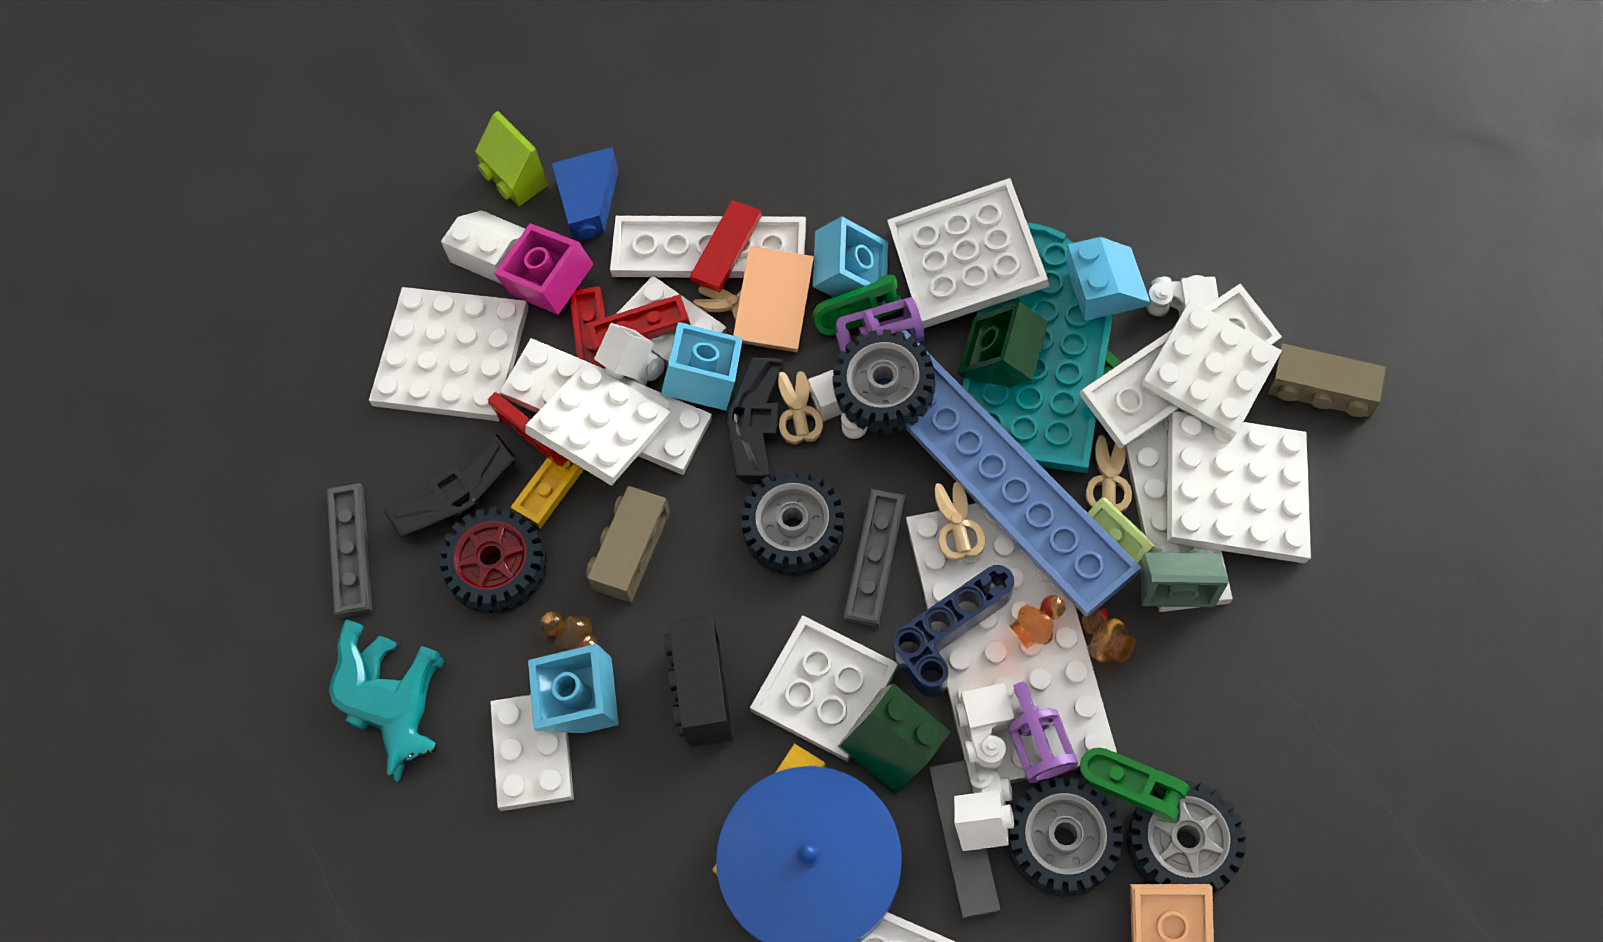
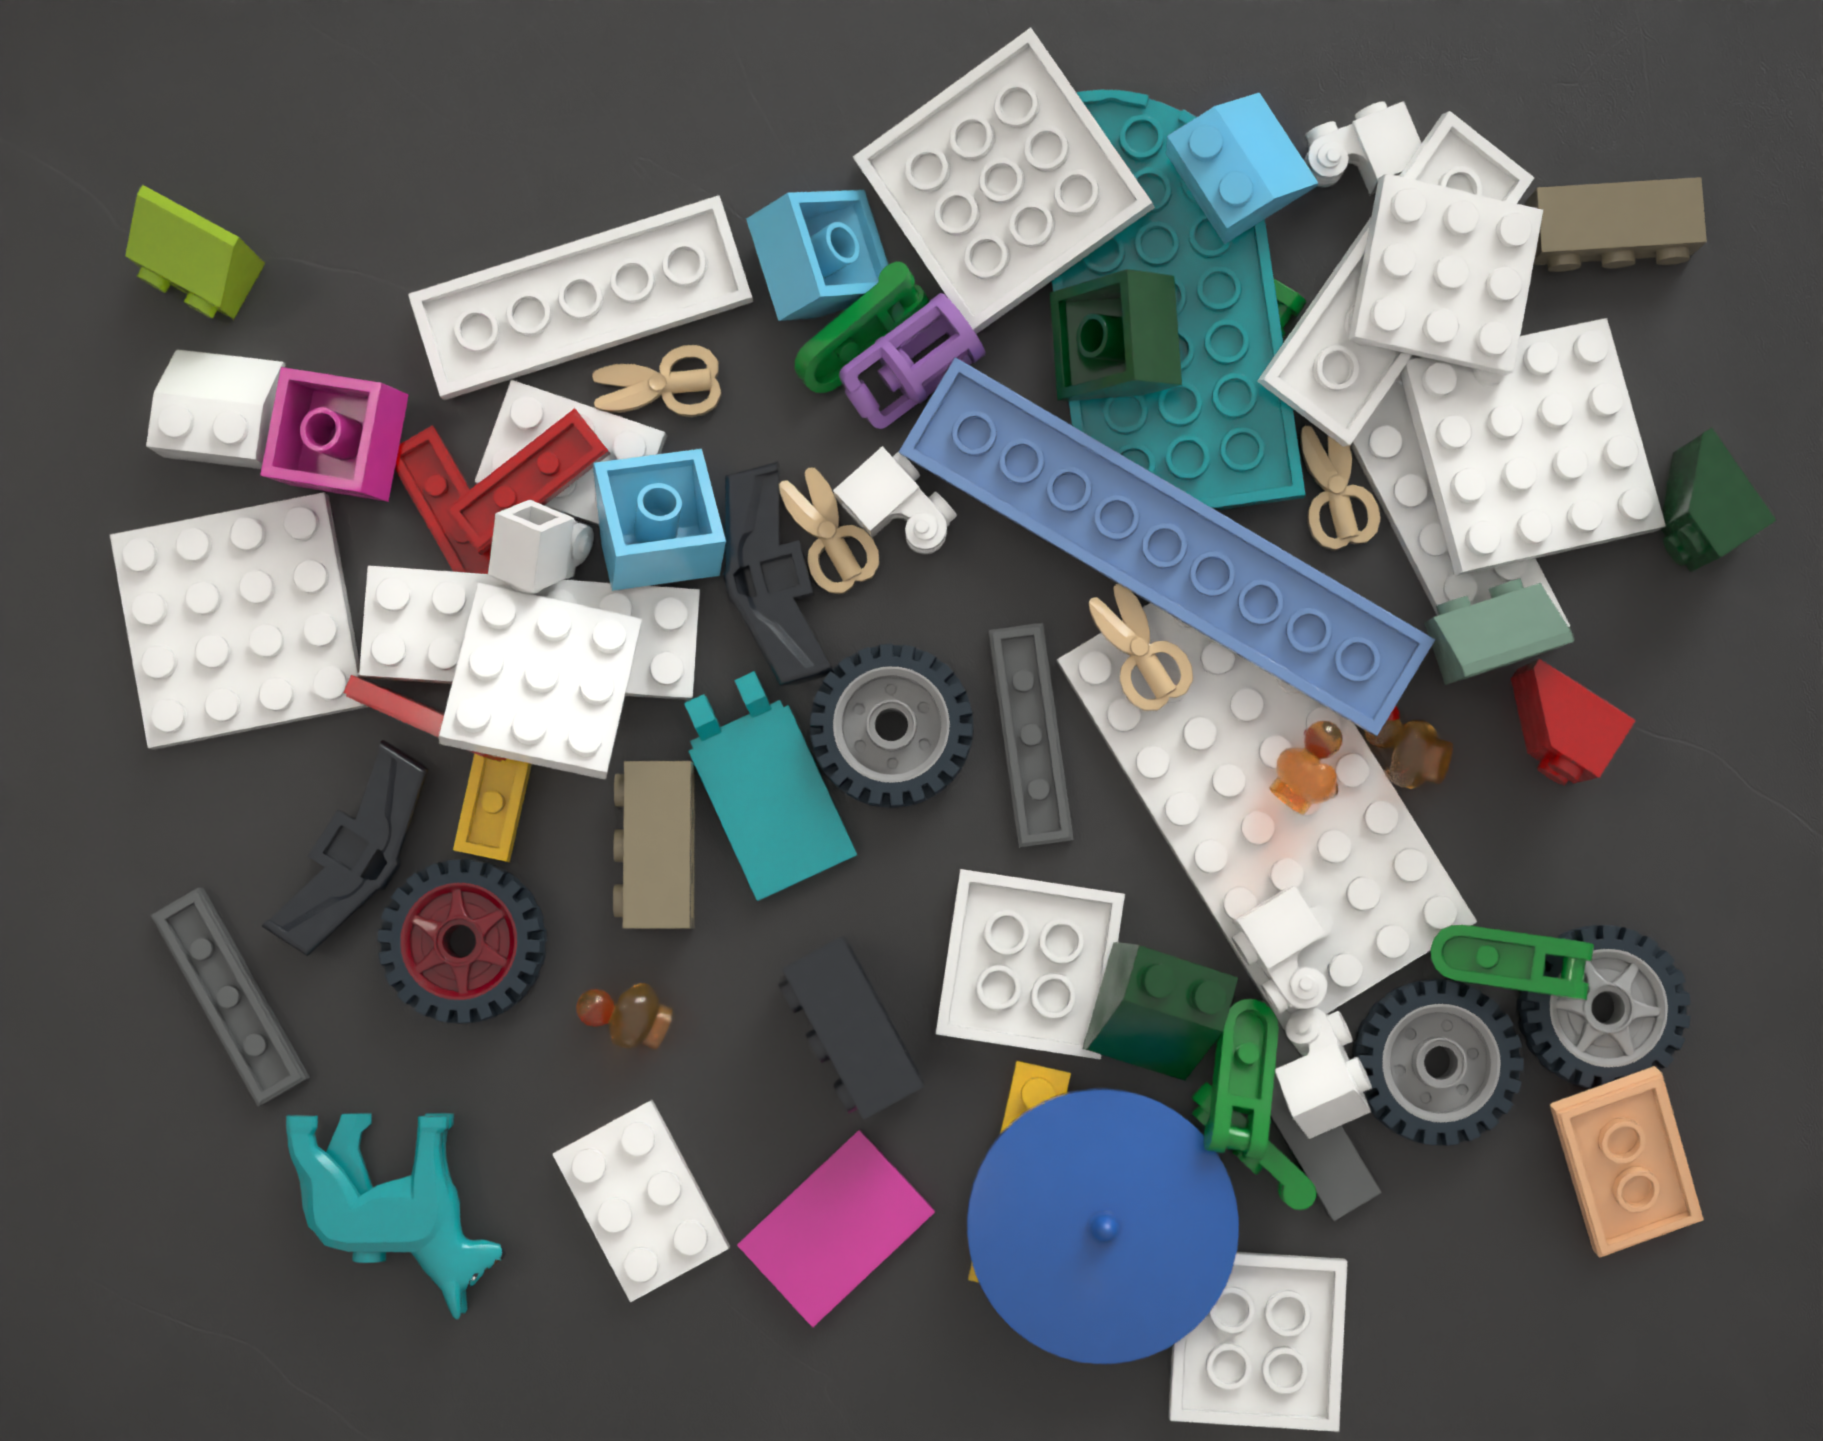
camera: 20 degrees left, 20 degrees up
(573, 691) = (671, 1103): medium azure slope -> none
(587, 191) = (340, 263): blue slope -> none
(642, 809) = (836, 1228): none -> dark pink tile
(705, 537) = (767, 791): none -> teal tile
(725, 246) = (613, 294): red tile -> none
(773, 298) = (724, 362): light nougat tile -> none
(887, 404) = (950, 420): wheel -> none
(925, 849) = (1292, 1184): none -> green plate
(932, 796) = (1243, 1080): none -> green plate
(958, 623) = (1193, 812): dark blue beam -> none
(1034, 722) = (1353, 927): medium lavender piece -> none
(1121, 529) = (1380, 578): yellowish green plate -> none
(1213, 648) = (1566, 724): none -> red slope
(1344, 552) = (1709, 504): none -> dark green slope

